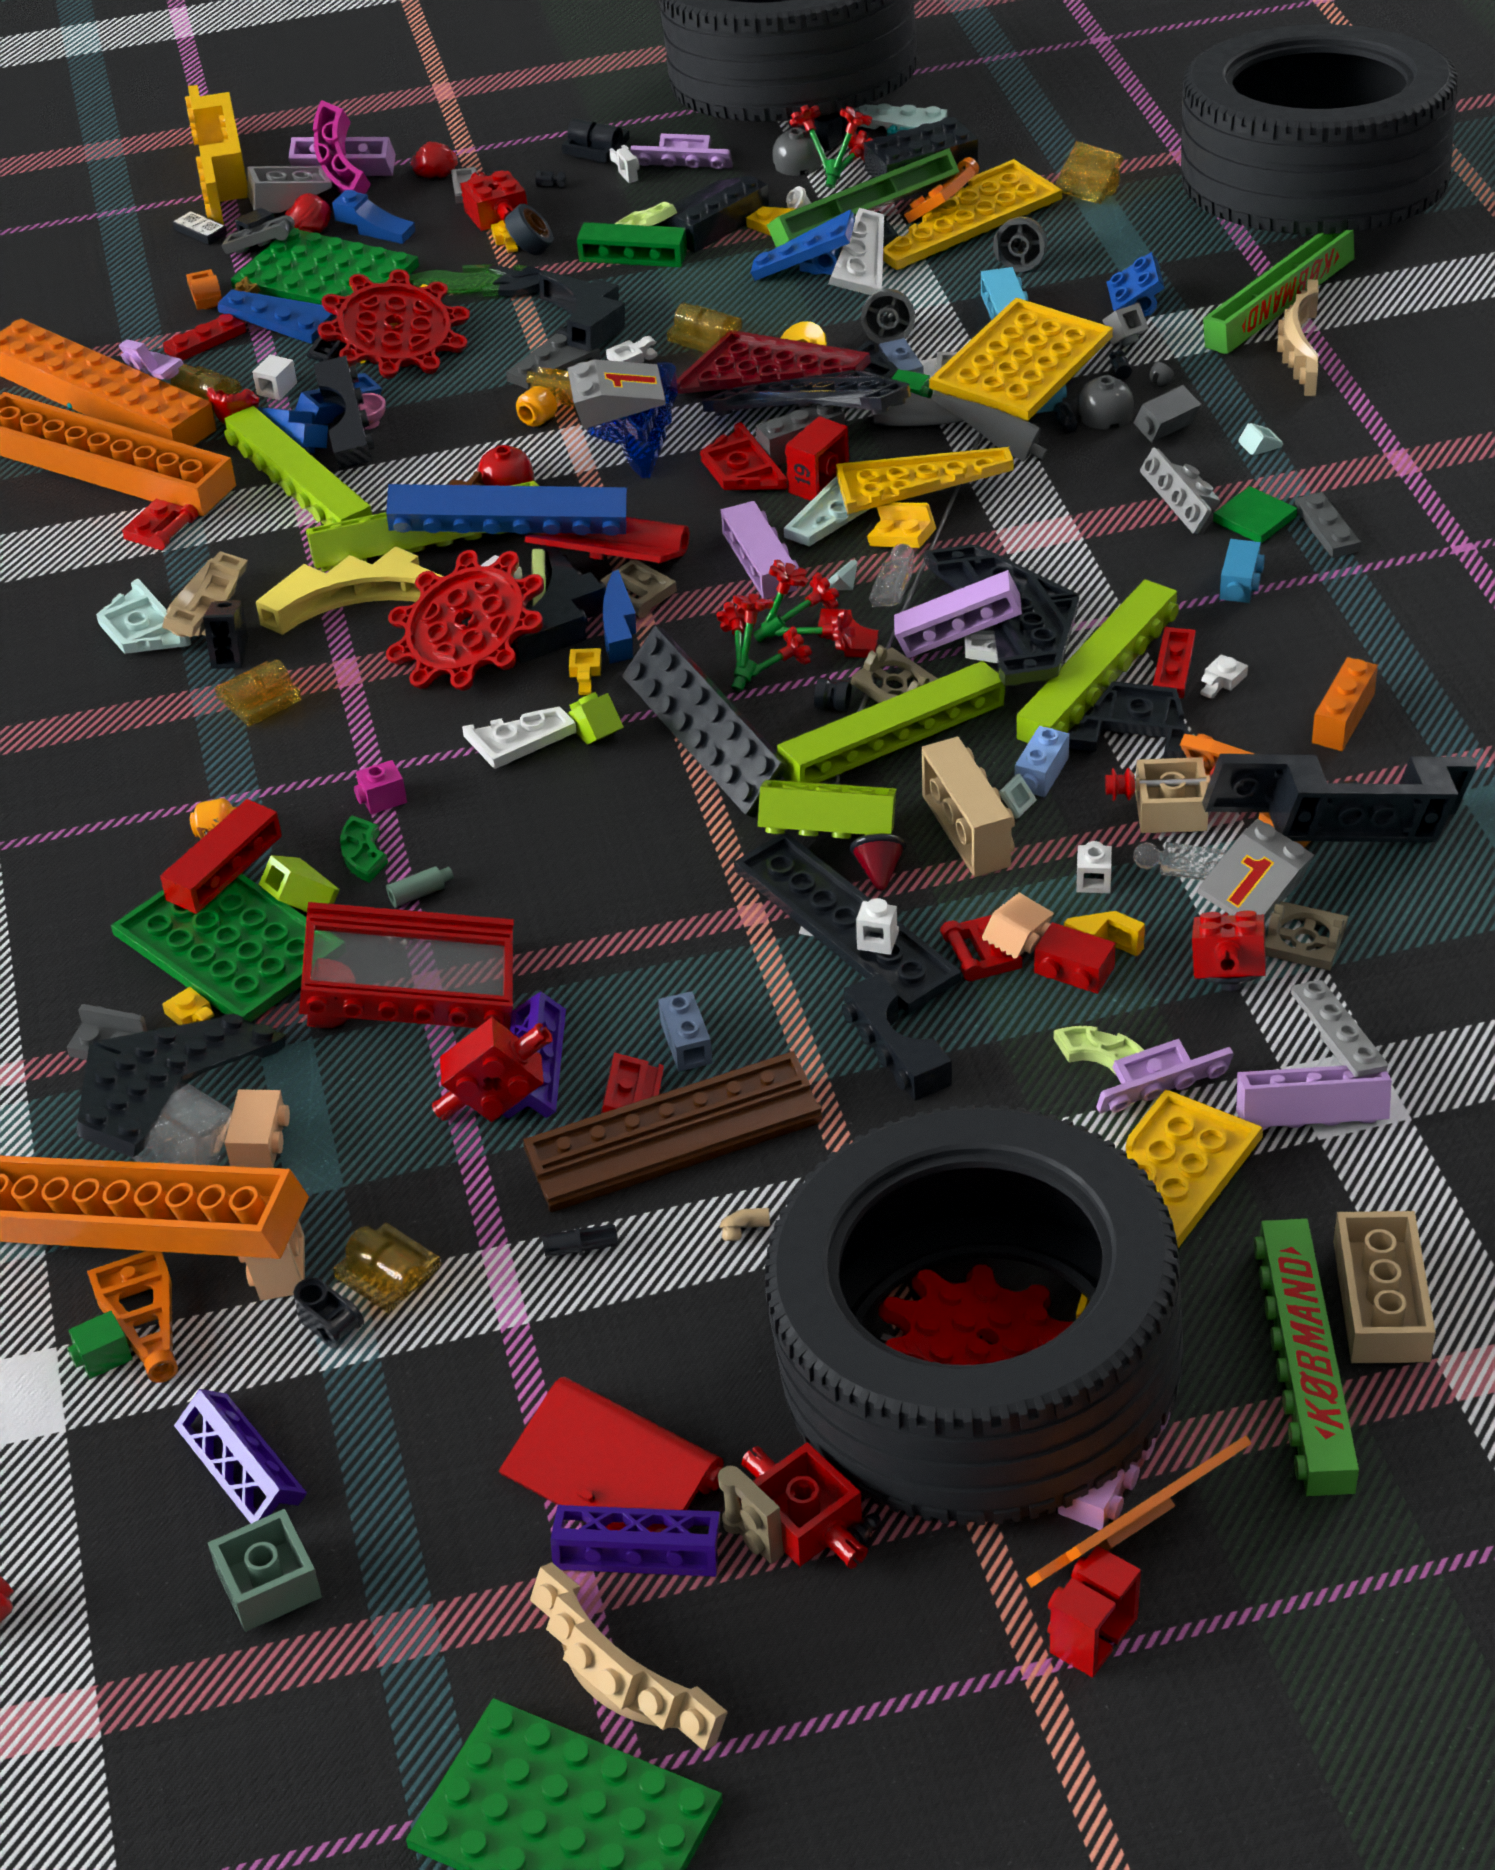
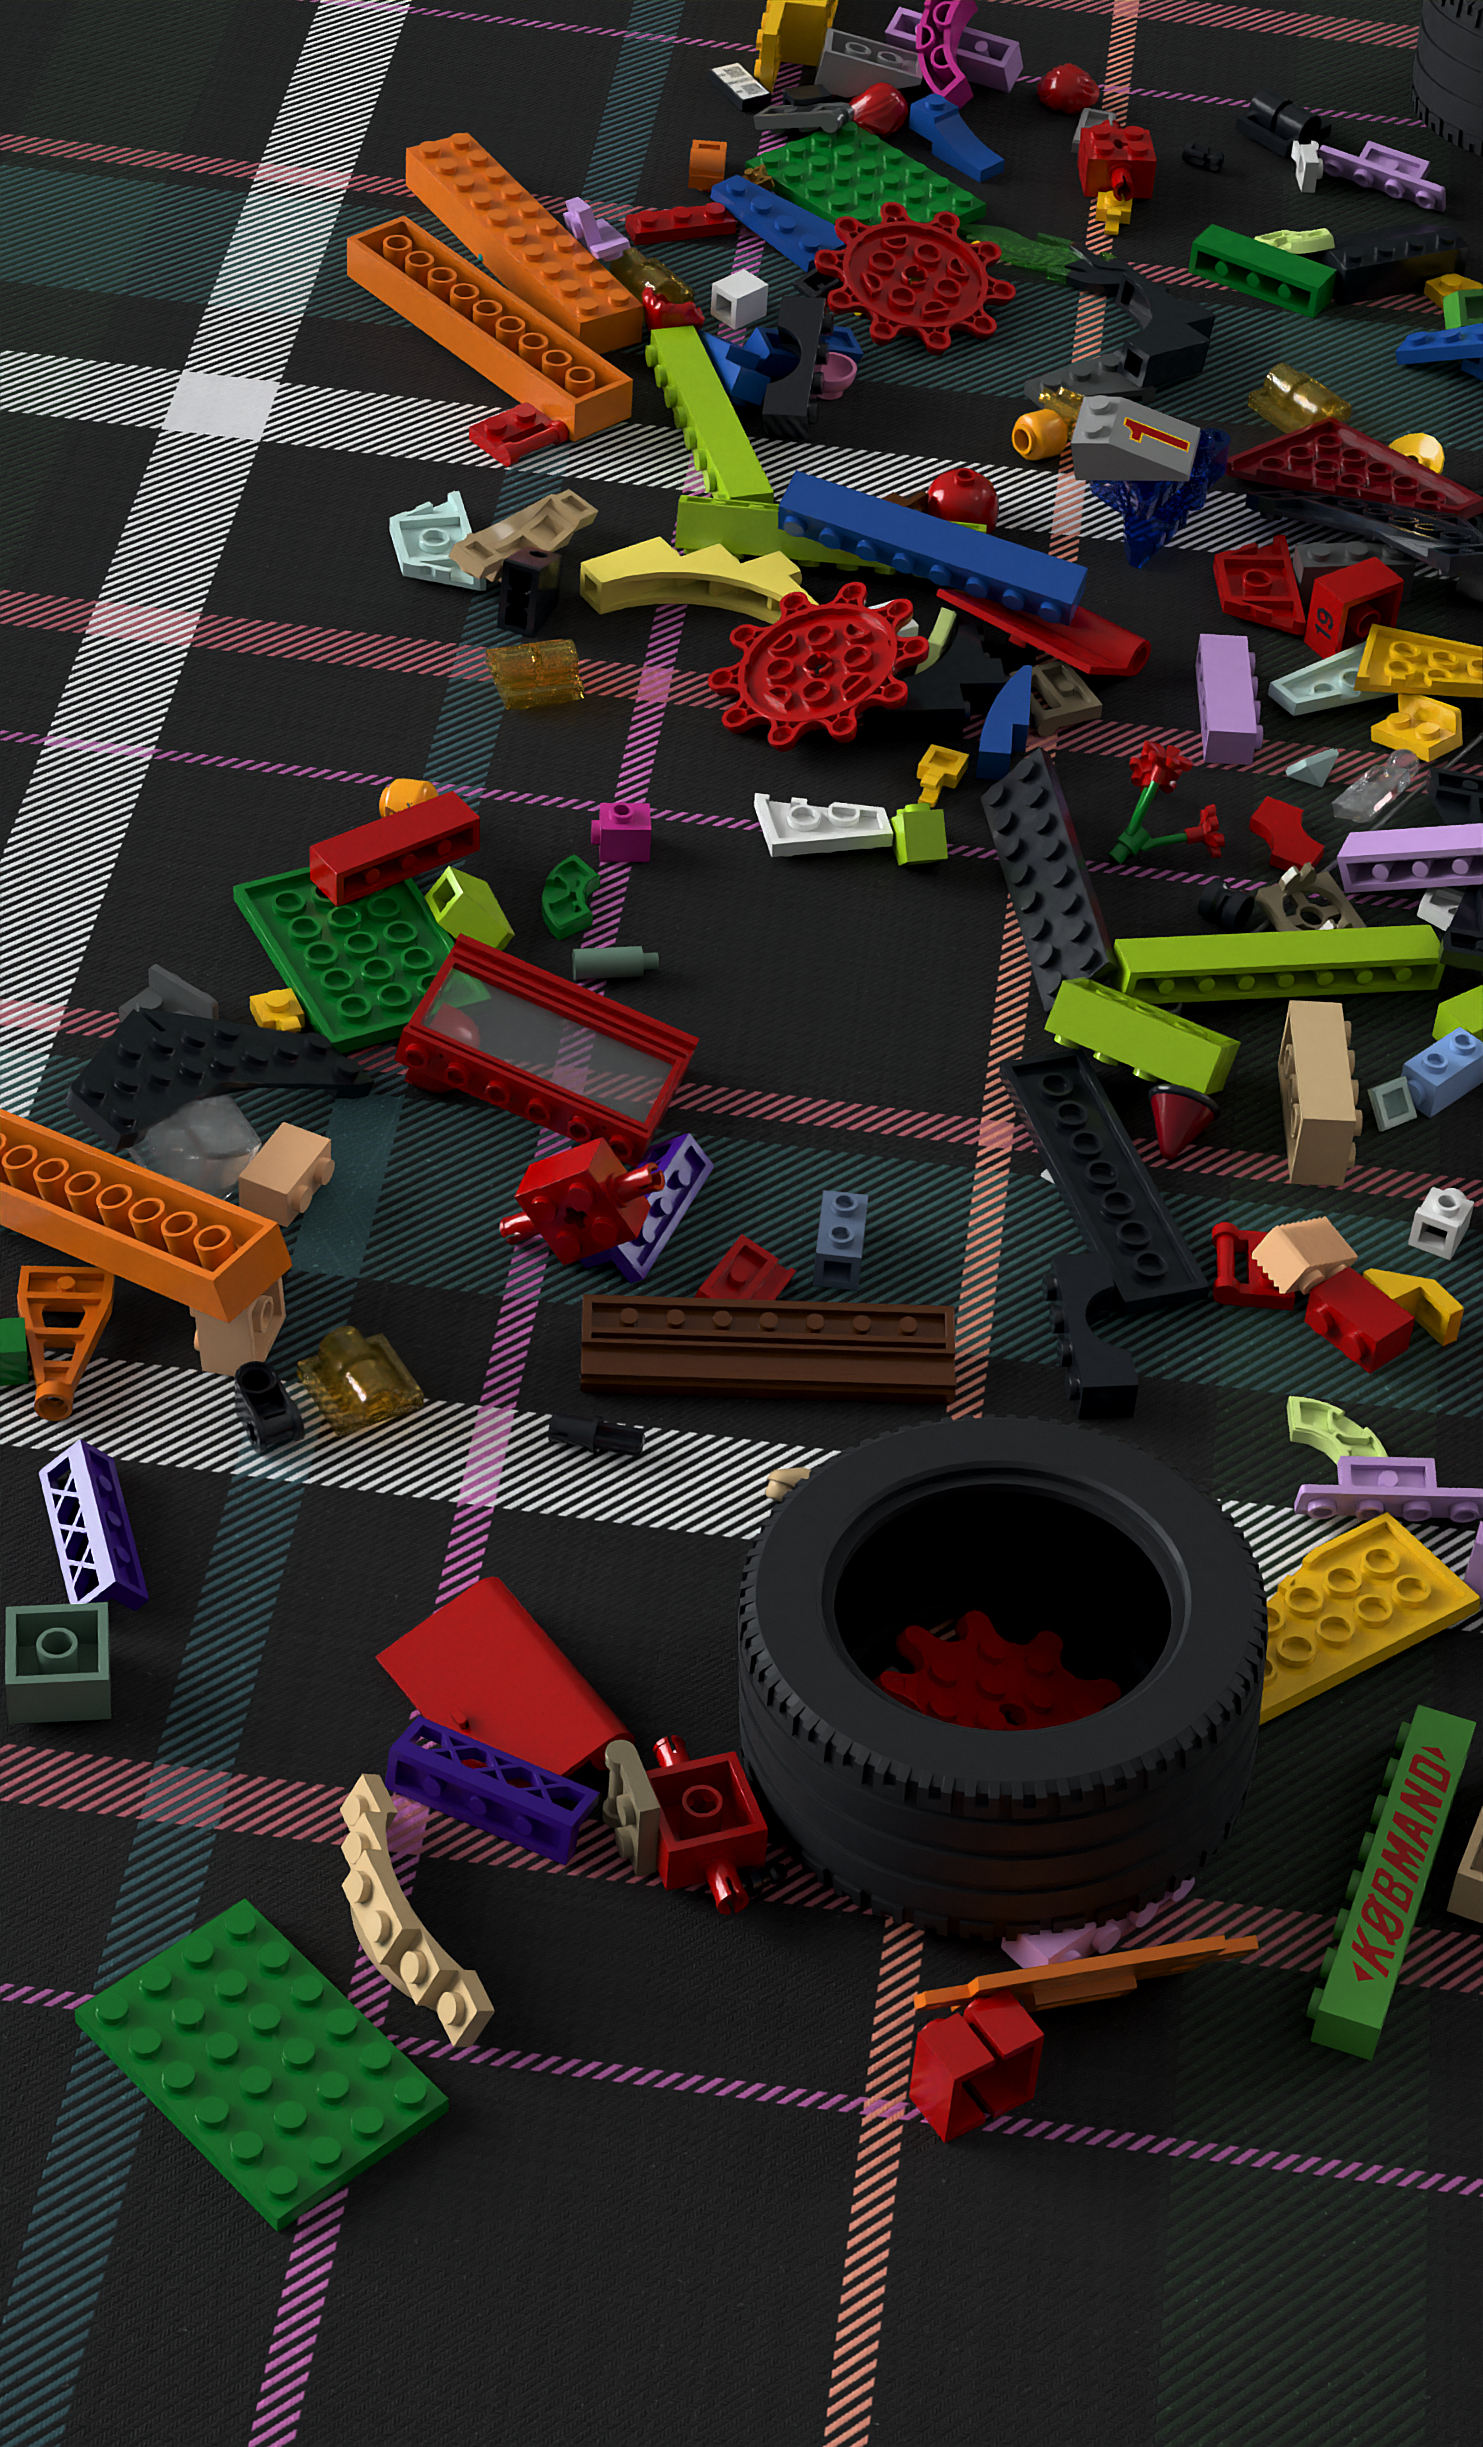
camera: 15 degrees right, 0 degrees up
(529, 229) = (1139, 212): black wheel -> none
(632, 352) = (1192, 407): white plate -> none
(775, 624) = (1272, 824): red plant -> none
(877, 918) = (1133, 1185): white brick -> none

